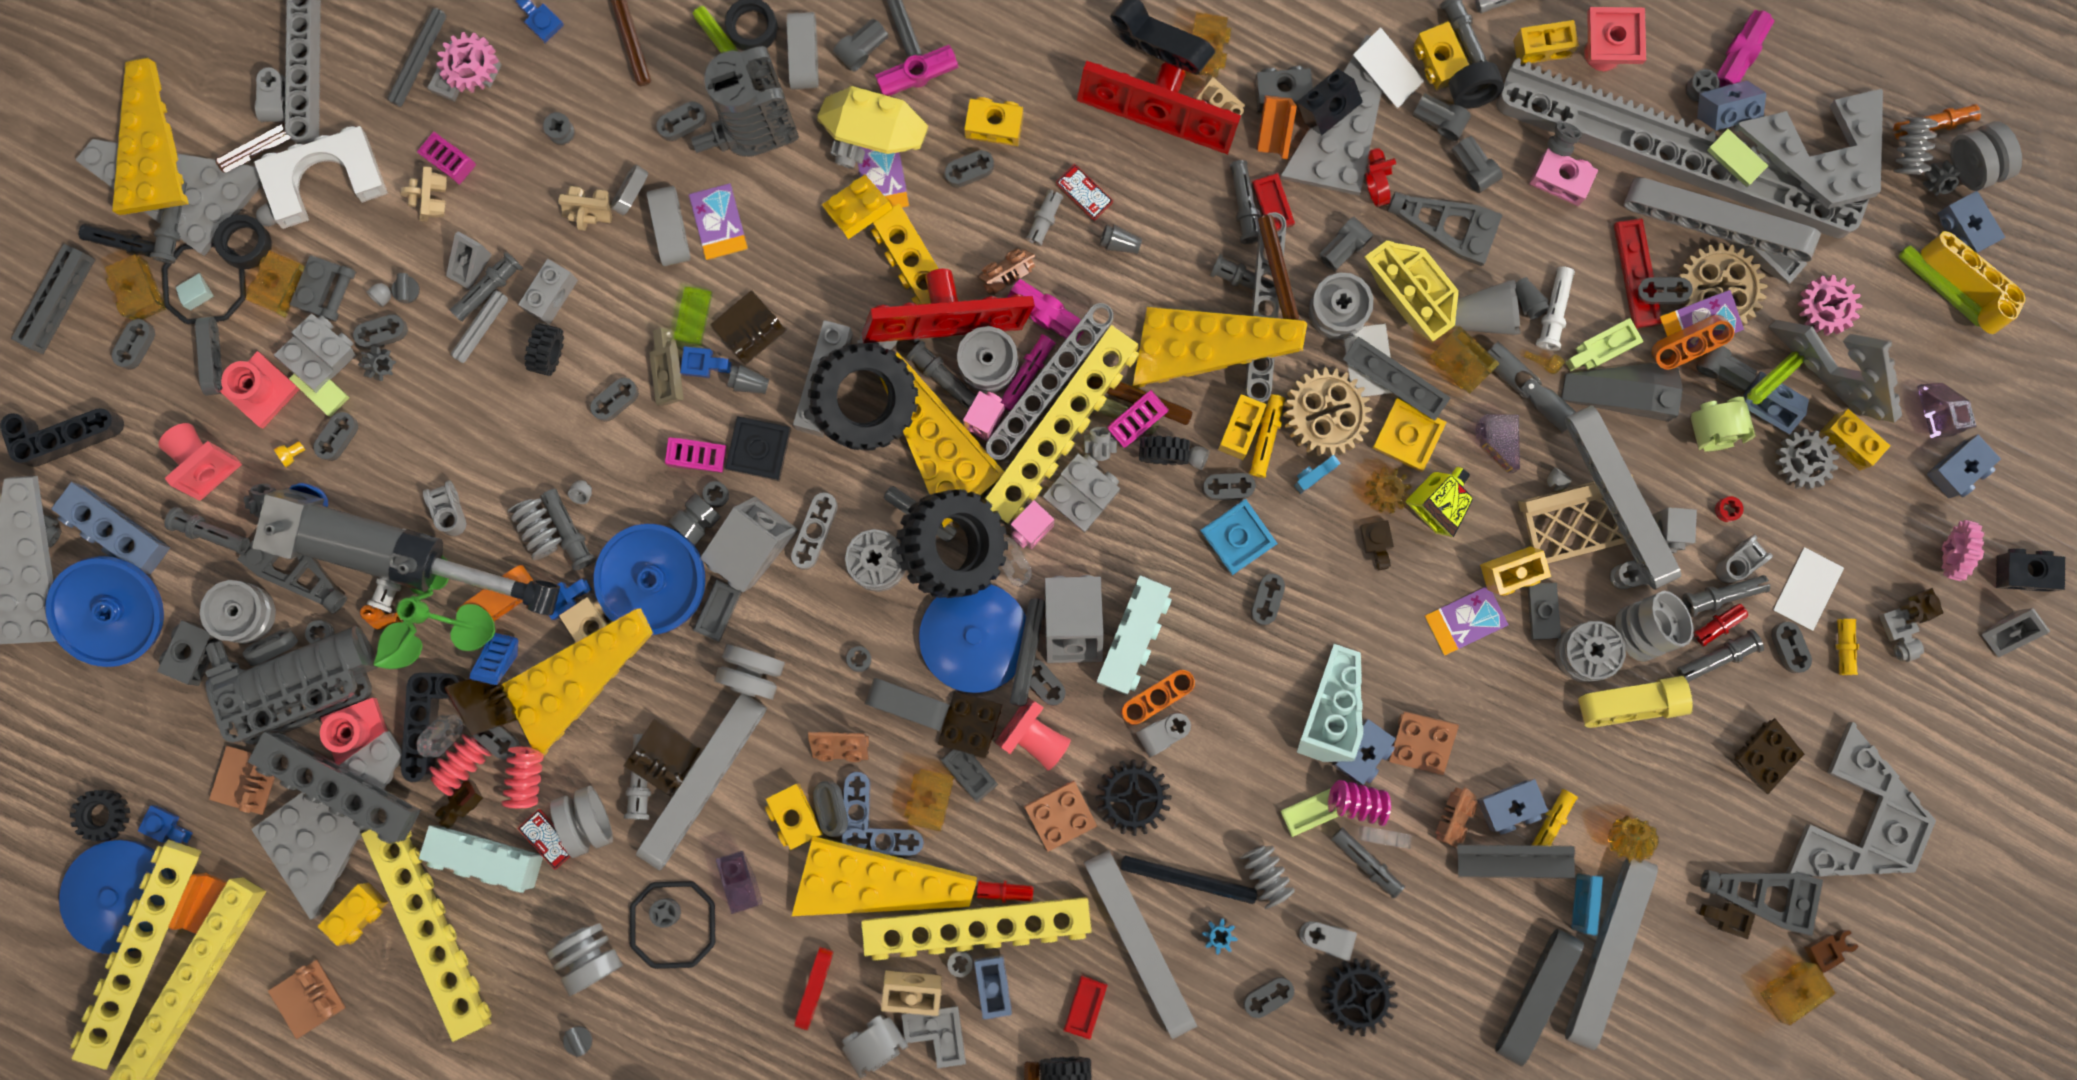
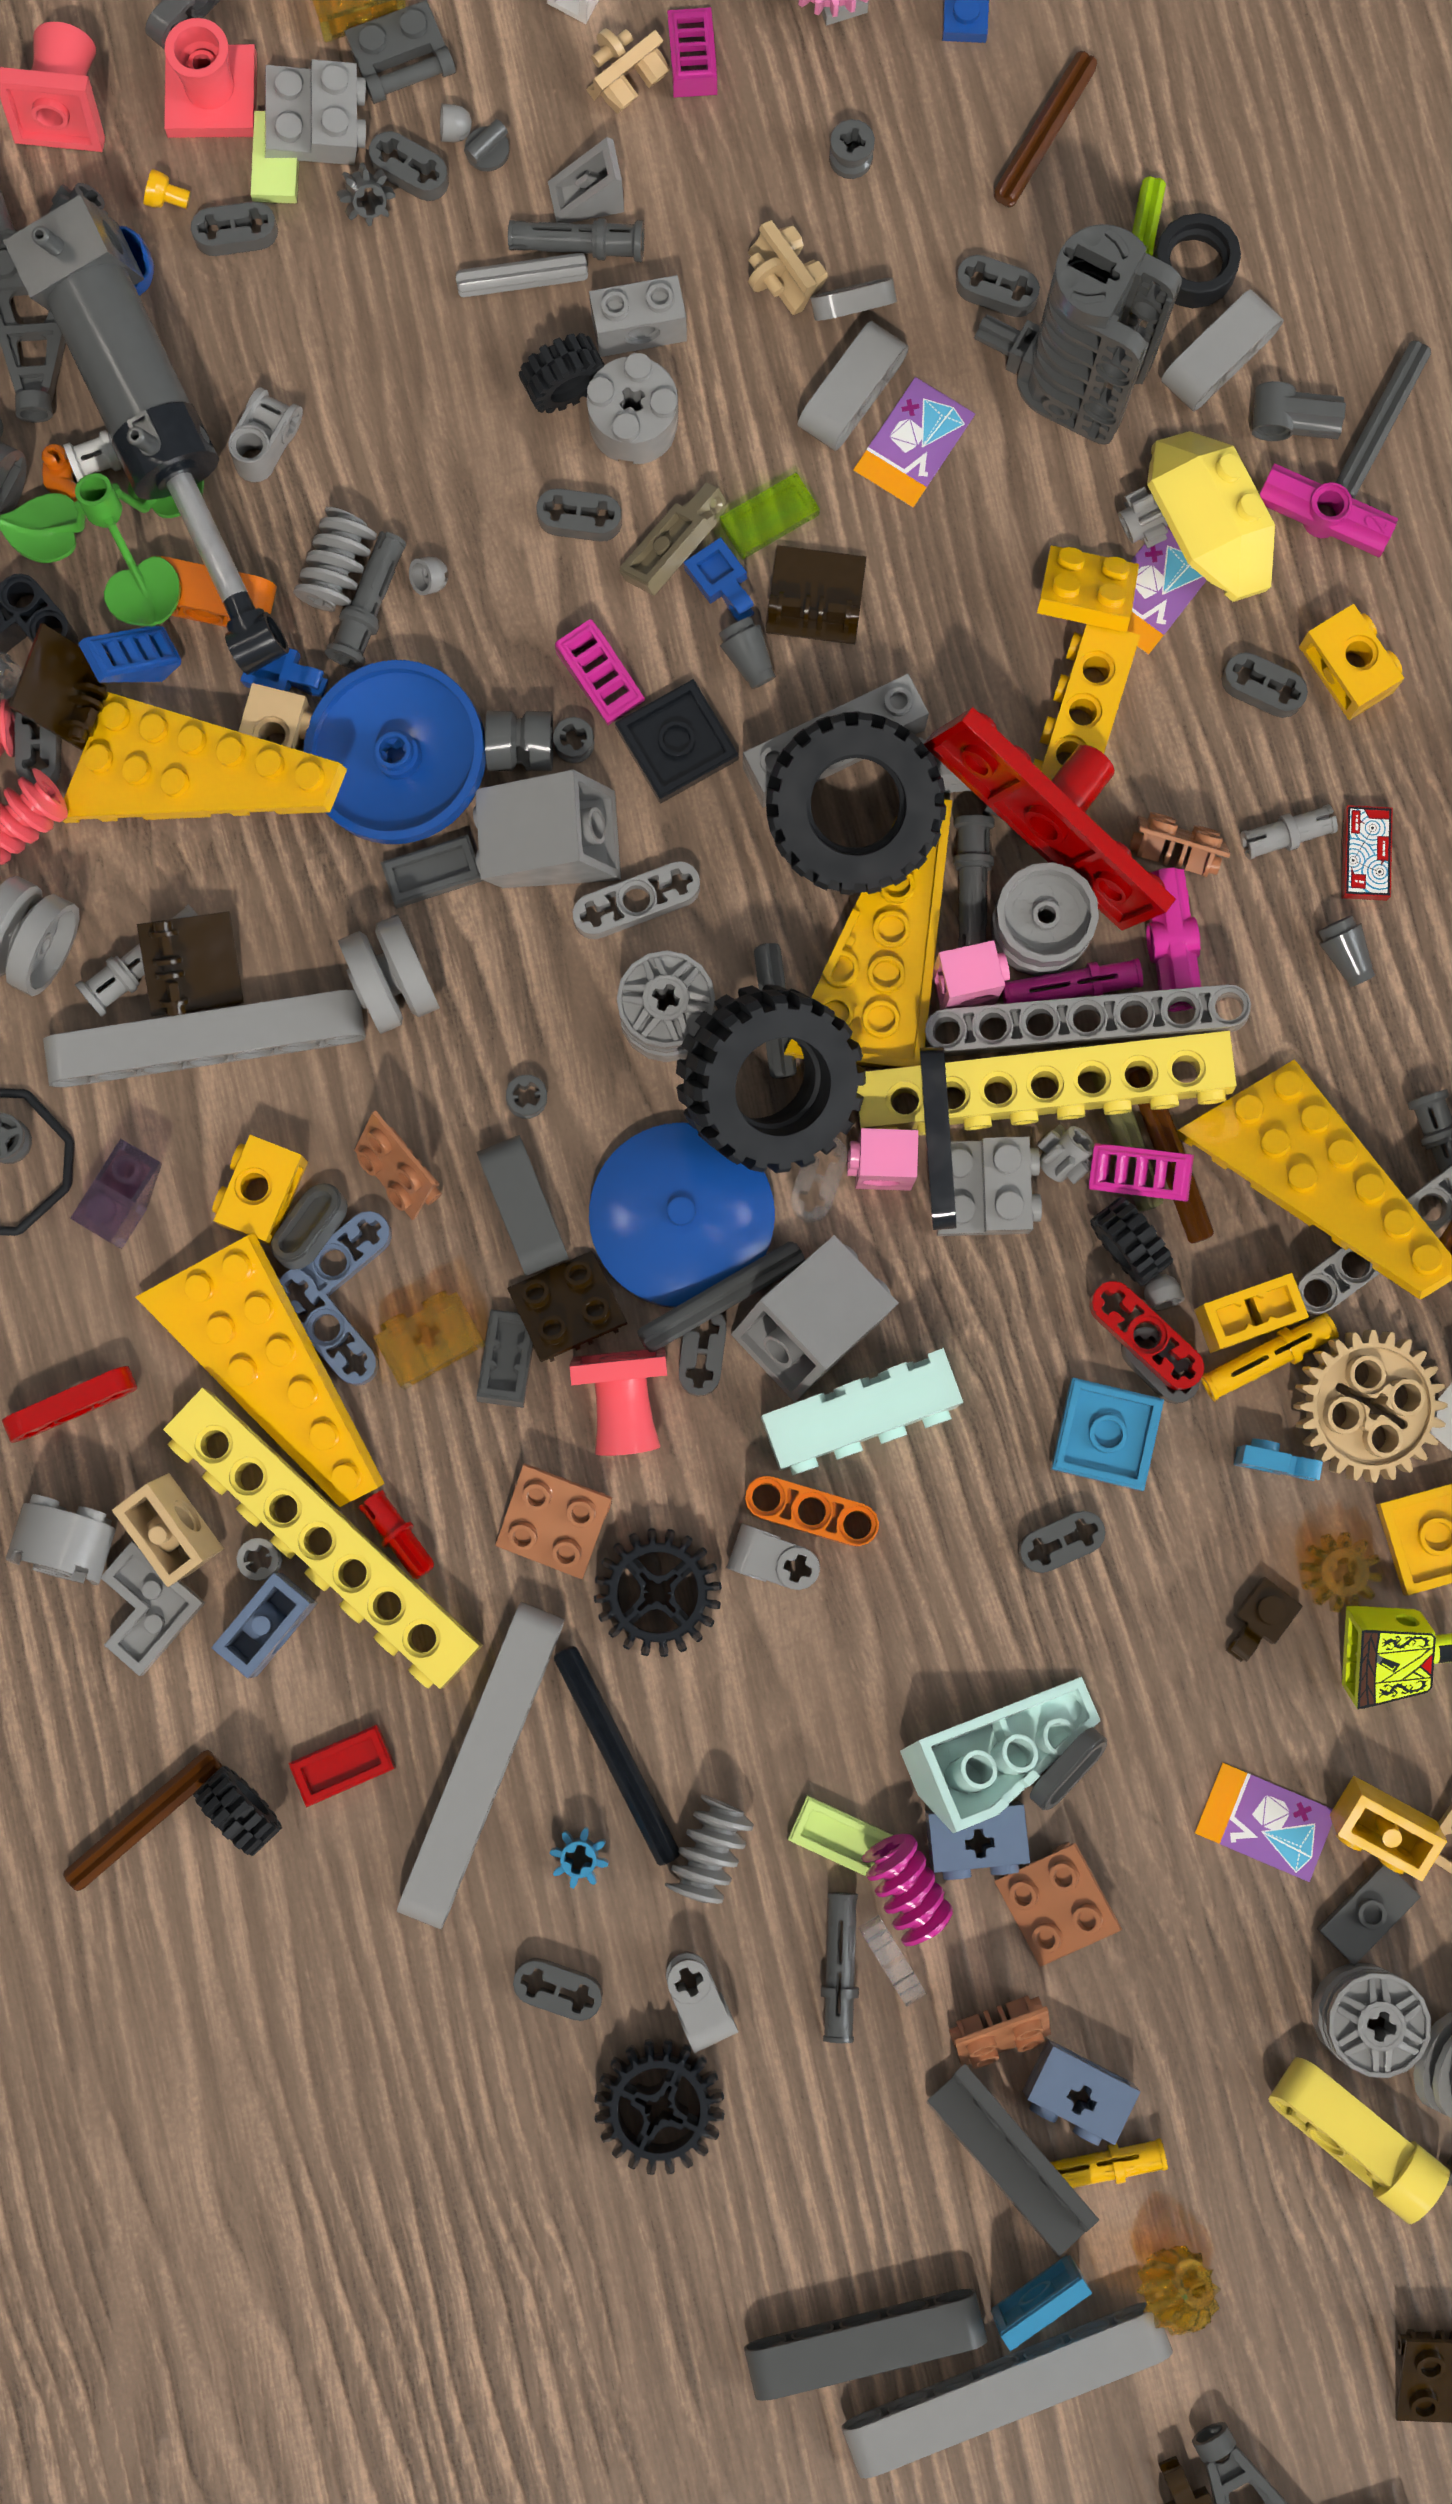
camera: 45 degrees right, 0 degrees up
(579, 321) = (617, 393): none -> light grey brick
(1044, 494) = (938, 1137): none -> black beam
(1232, 486) = (1165, 1367): none -> red beam
(1369, 685) = (1068, 1769): none -> dark grey tile

